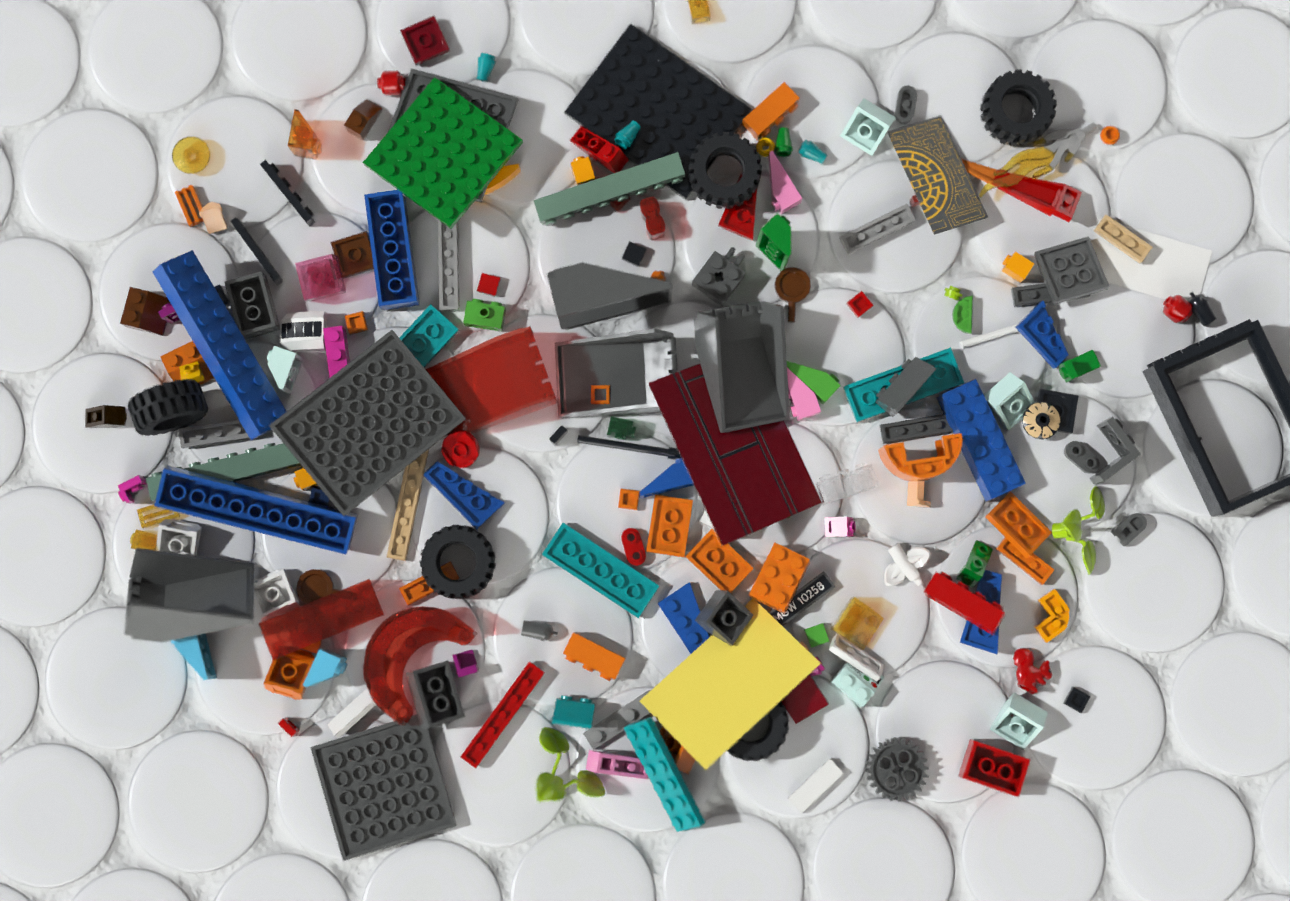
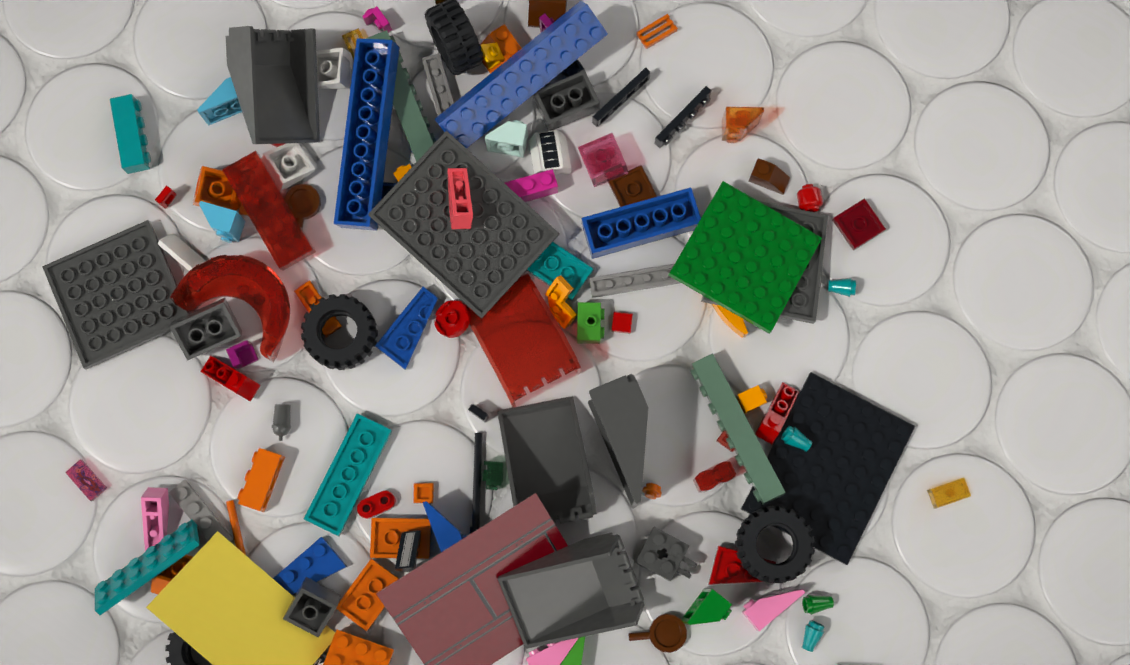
camera: 85 degrees right, 5 degrees down
(143, 540) = (328, 38): clear yellow brick -> none
(184, 149) = (705, 15): clear yellow dish -> none
(213, 217) = (648, 52): light nougat tile -> none
(213, 759) = (130, 133): none -> teal brick
(343, 420) = (459, 199): none -> coral slope
(356, 323) = (565, 201): orange tile -> none
(407, 508) = (388, 276): tan tile -> none
(457, 344) = (557, 294): none -> light orange plate
(487, 678) = (230, 378): none -> red slope
(502, 714) = (196, 398): red plate -> none
(552, 787) = (120, 452): lime plant -> none
(569, 832) = (86, 480): none -> clear pink tile
(574, 712) = (201, 467): teal slope -> none
(593, 387) = (518, 443): orange tile -> none
(633, 687) = (235, 526): none -> orange bar
(634, 254) = (675, 463): black tile -> none
(684, 517) = (408, 551): none -> slope
(765, 142) = (813, 581): yellow plate -> none
(771, 111) = (847, 586): orange brick -> none

